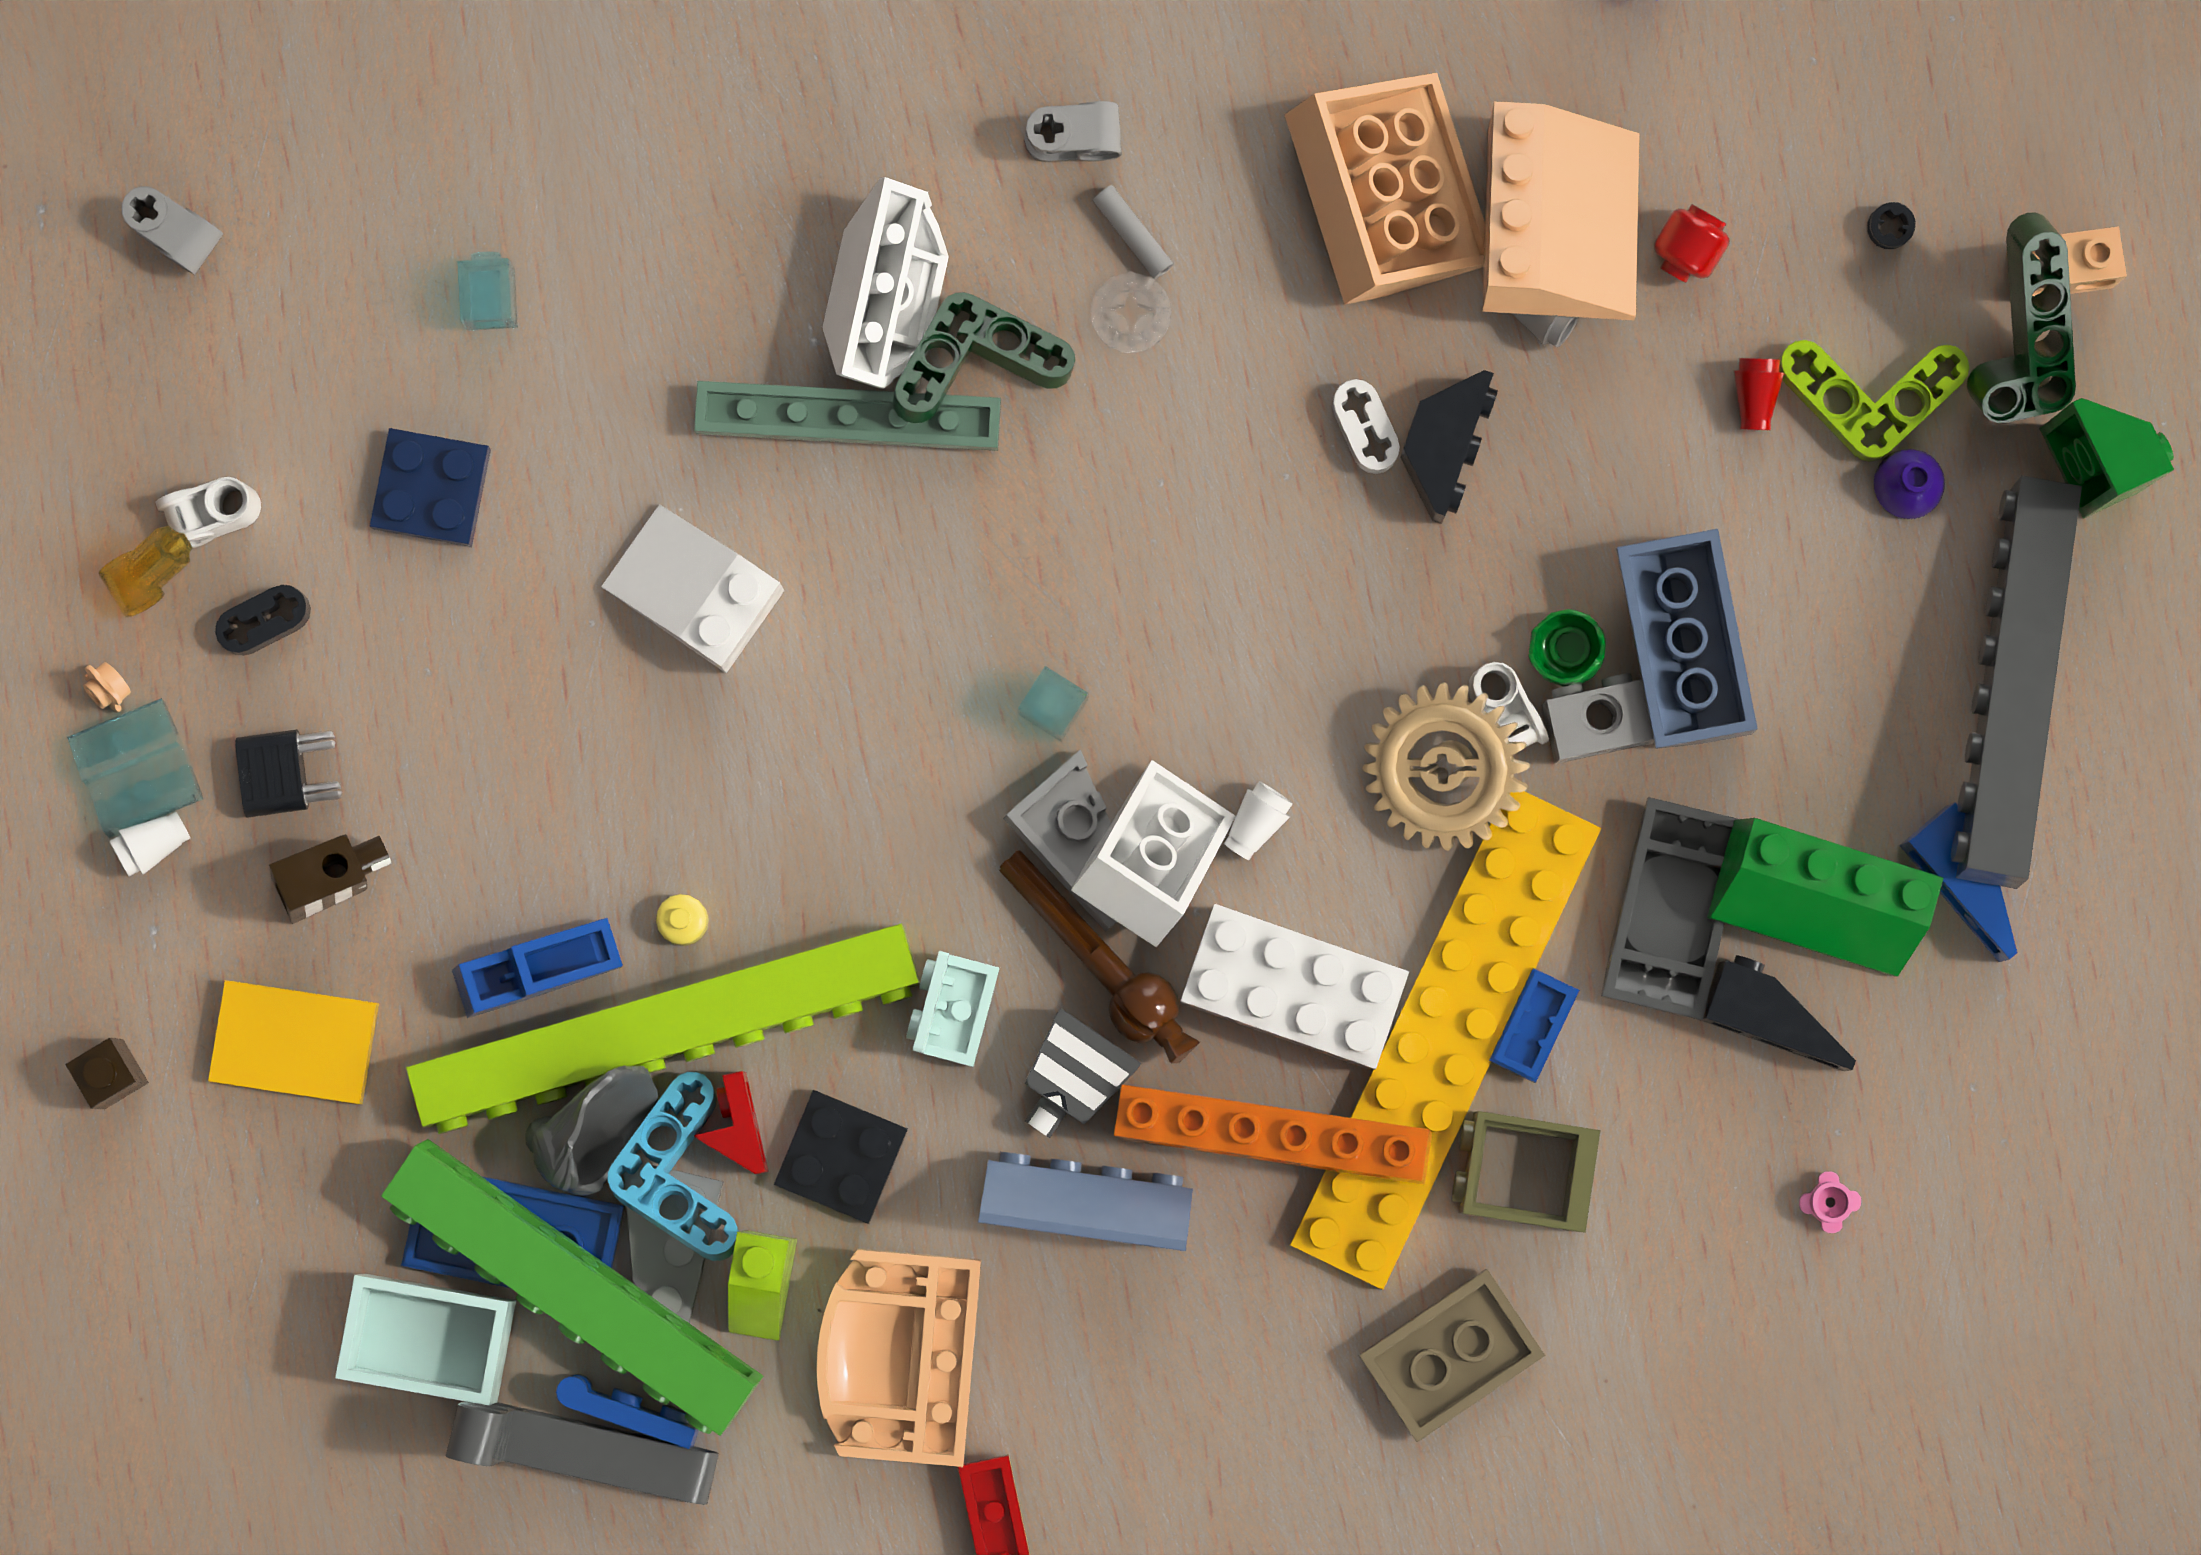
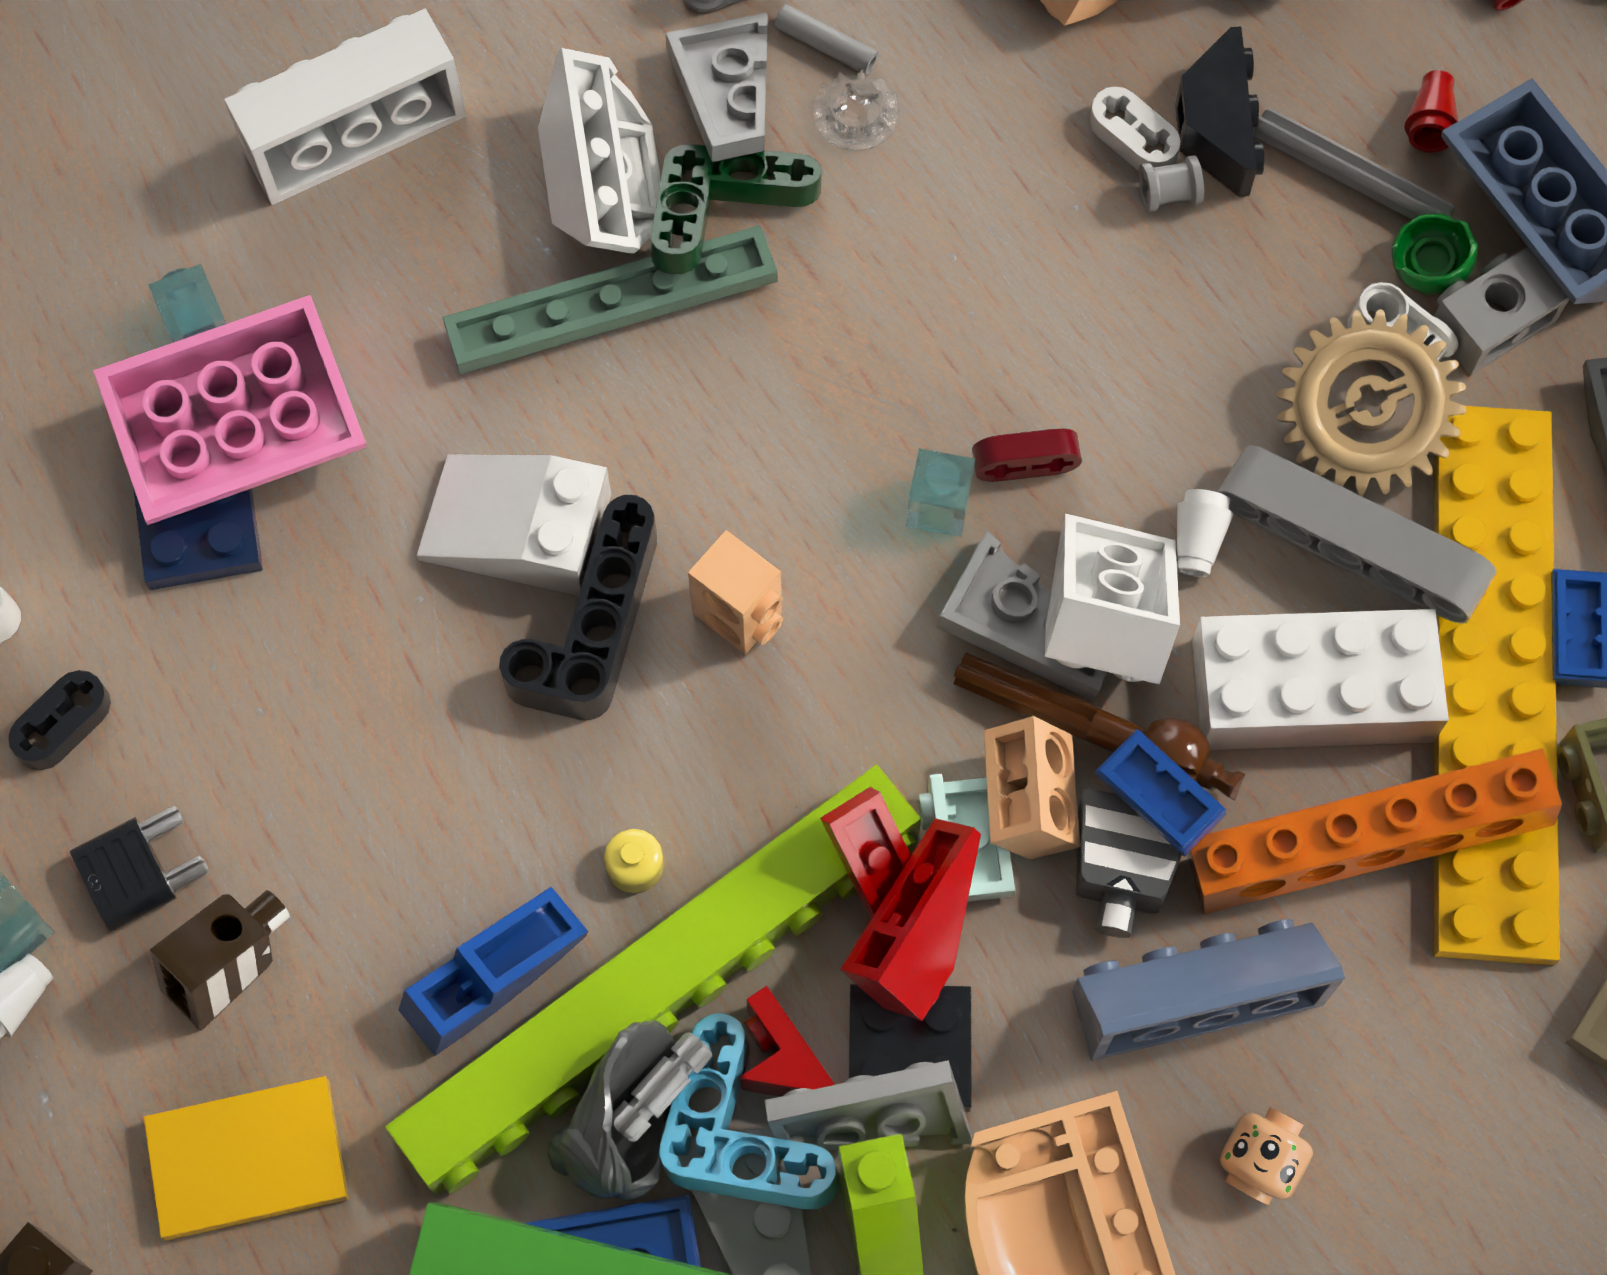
camera: 20 degrees left, 15 degrees down
(488, 408) = (229, 409): none -> bright pink slope
(629, 1118) = (660, 1086): none -> light grey axle
(682, 151) = (347, 106): none -> white brick
(727, 692) = (594, 607): none -> black beam
(801, 1205) = (906, 1102): none -> light grey wing
(846, 734) = (736, 593): none -> light nougat brick
(869, 1023) = (868, 845): none -> red plate
(874, 1075) = (919, 925): none -> red slope
(1019, 990) = (1031, 788): none -> light nougat brick
(1024, 246) = (724, 82): none -> light grey wing
(1078, 1352) = (1266, 1156): none -> light nougat head
(1114, 1040) = (1161, 792): none -> blue plate
(1141, 696) = (1026, 455): none -> dark red beam
(1372, 492) = (1171, 183): none -> light grey bush
(1380, 876) = (1357, 534): none -> light grey beam
(1538, 536) = (1348, 167): none -> light grey axle
(1633, 512) = (1432, 112): none -> red cone

